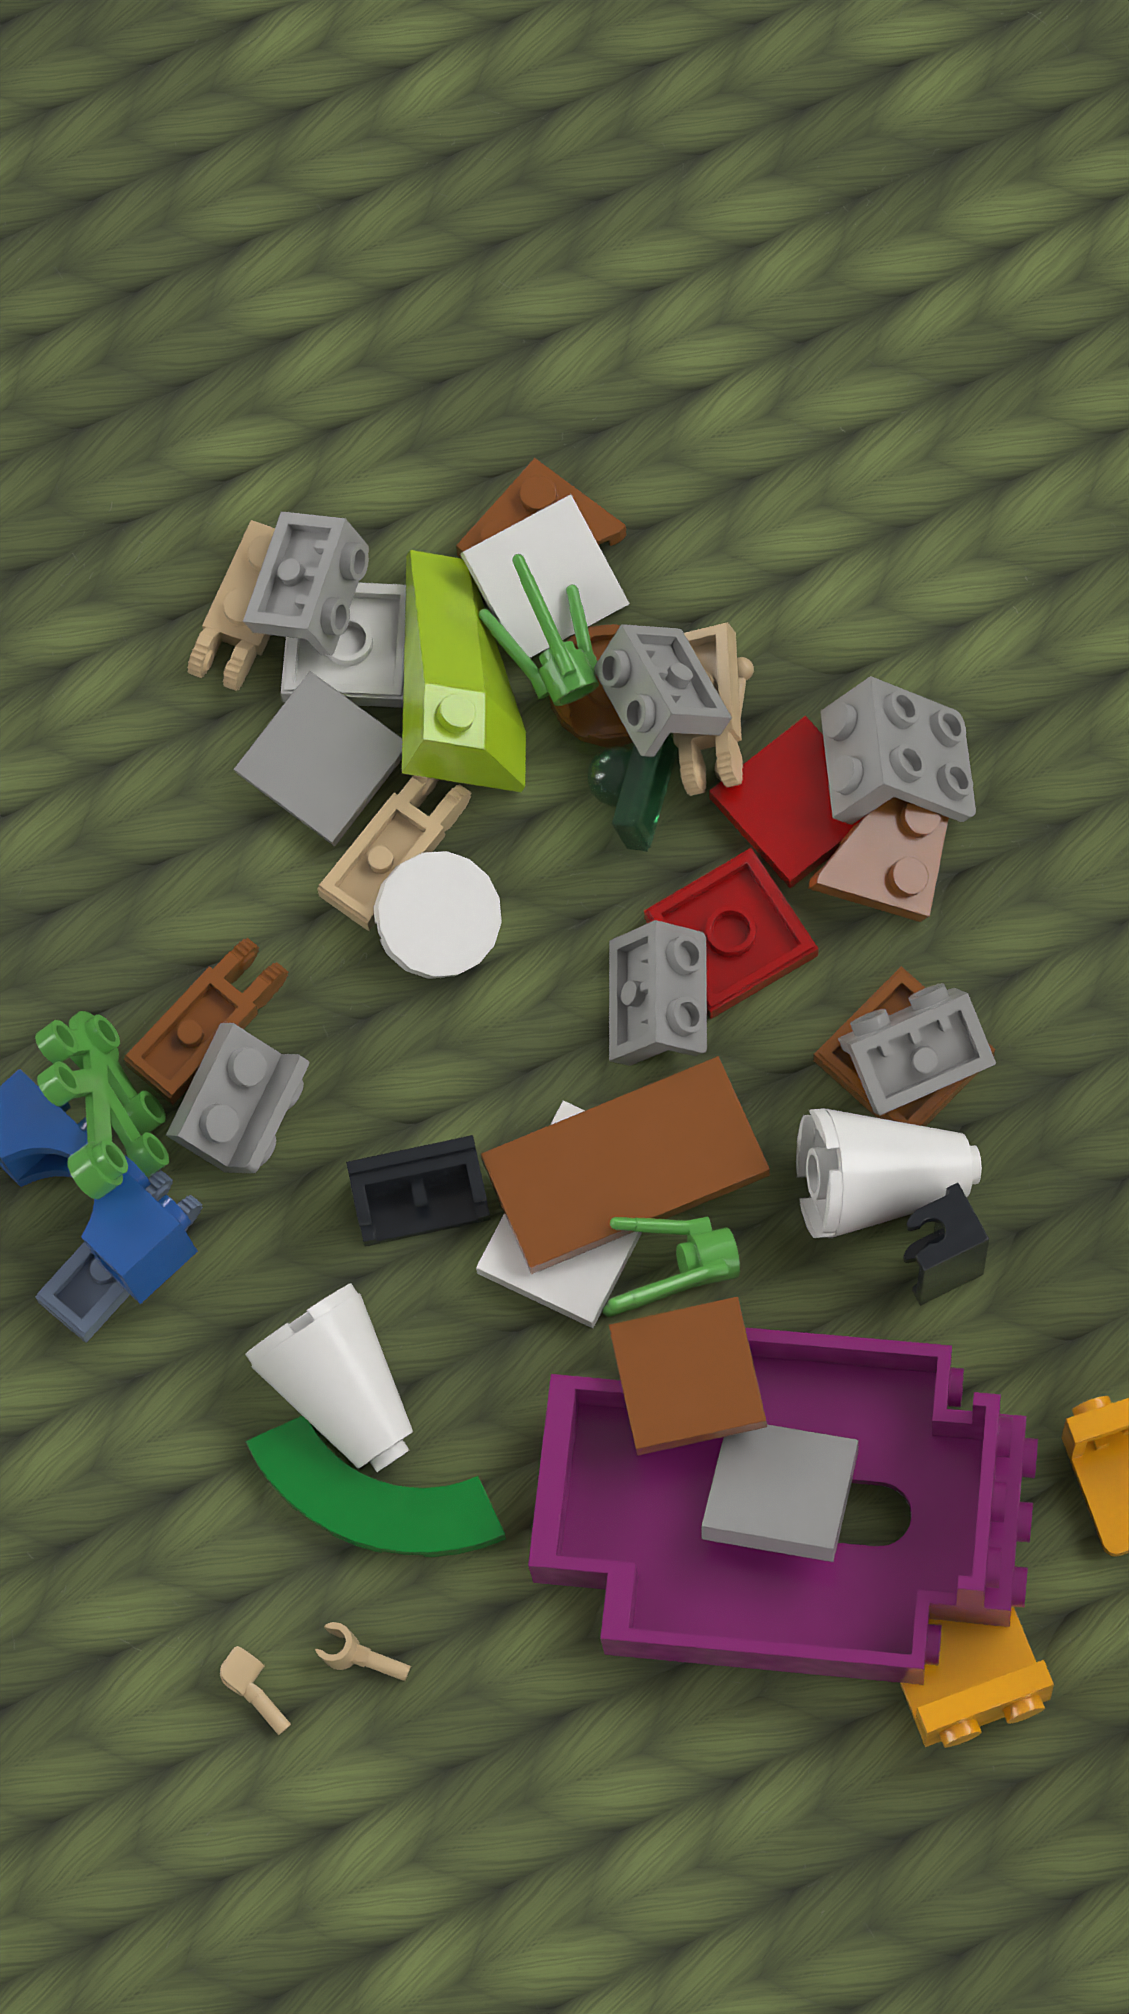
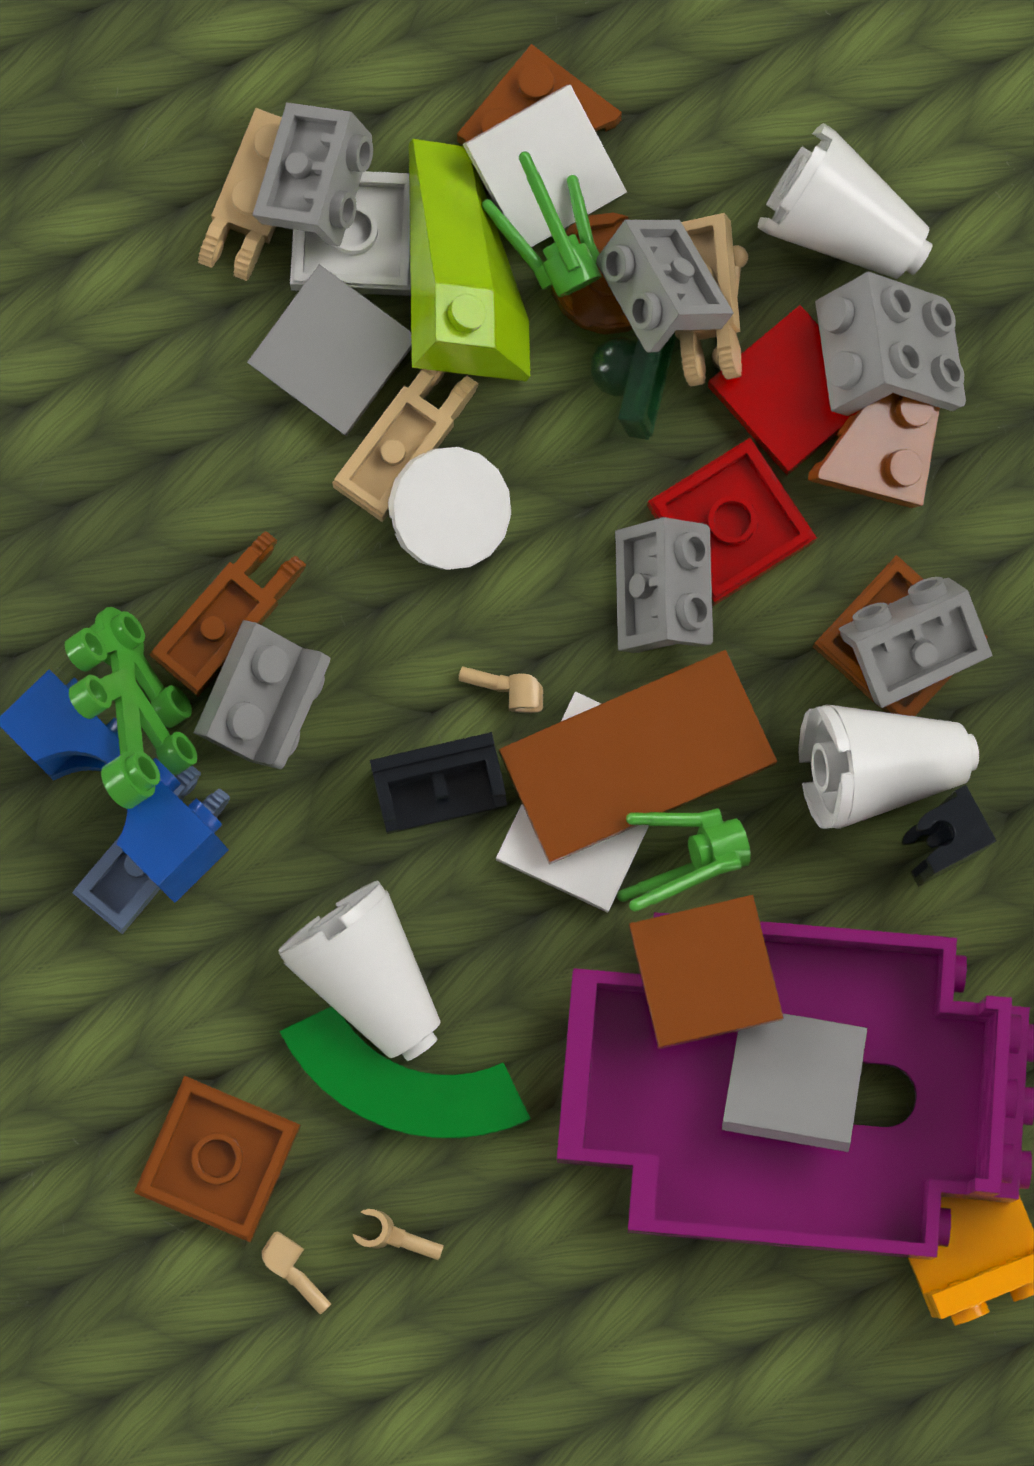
camera: 10 degrees left, 10 degrees up
(177, 1573) = (217, 1159): none -> dark orange tile
(509, 1098) = (523, 689): none -> tan hand
(854, 621) = (845, 210): none -> white cone

